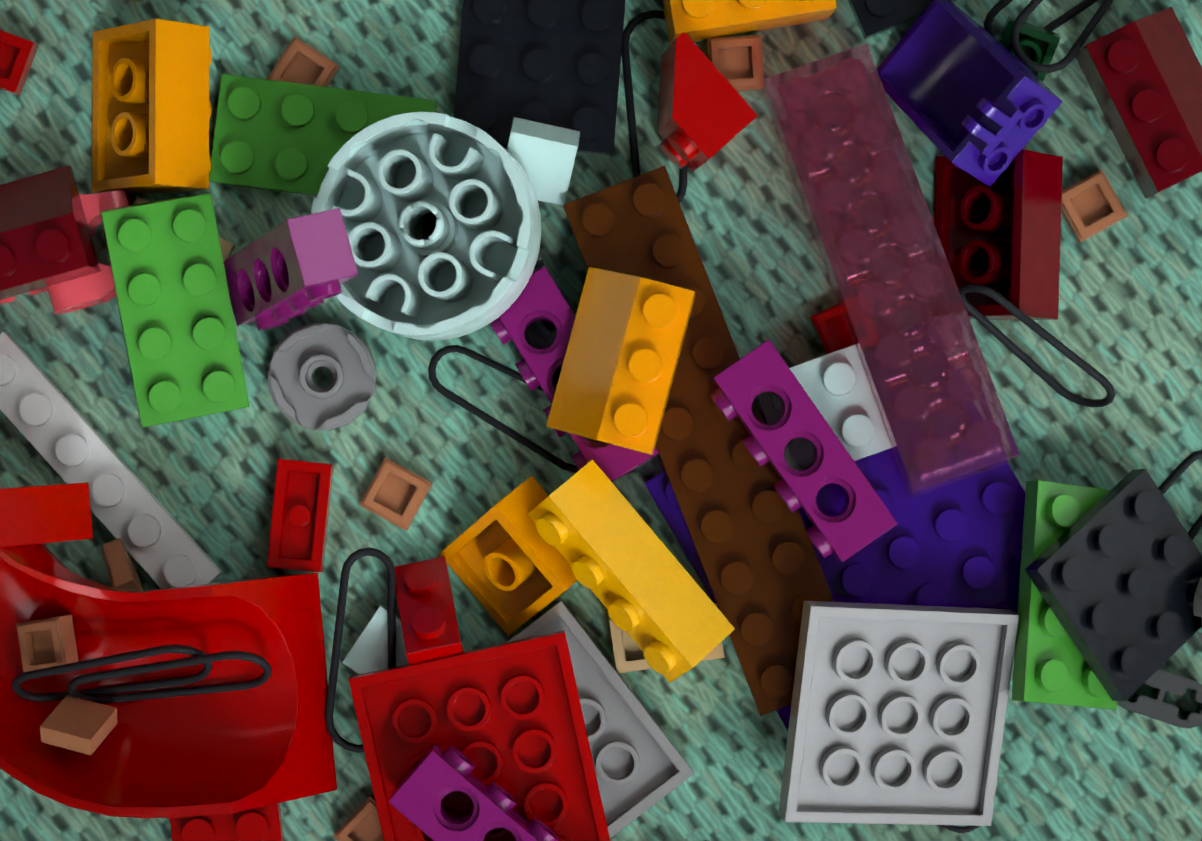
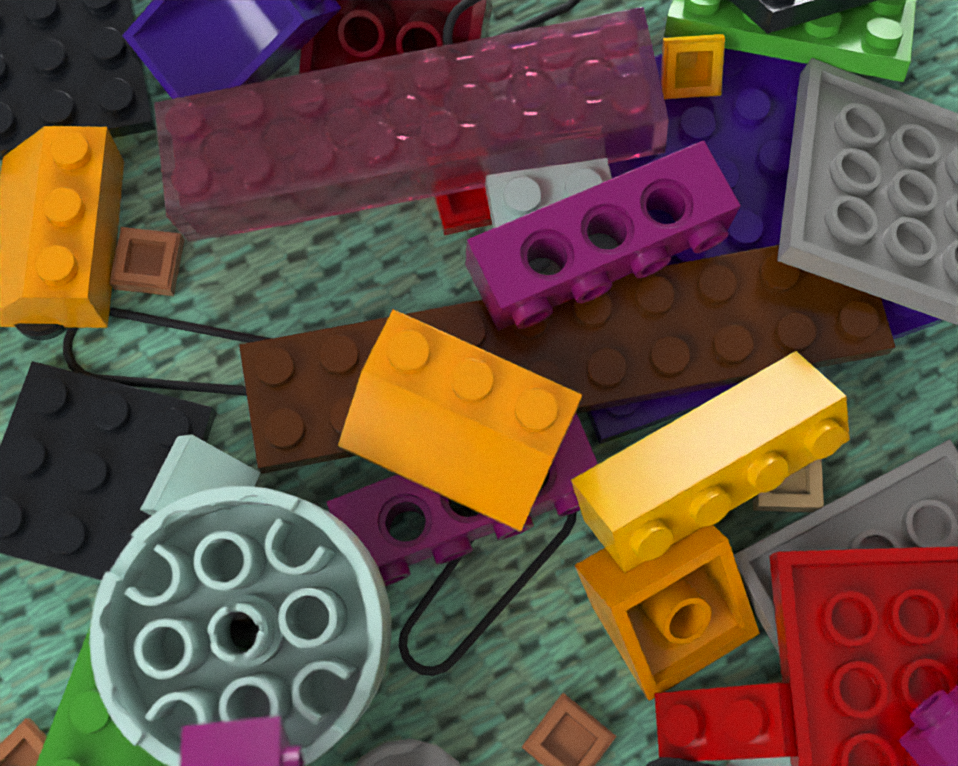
camera: 80 degrees left, 15 degrees down
(696, 106) = (174, 292): red slope -> none
(996, 510) = (692, 66): none -> yellow slope

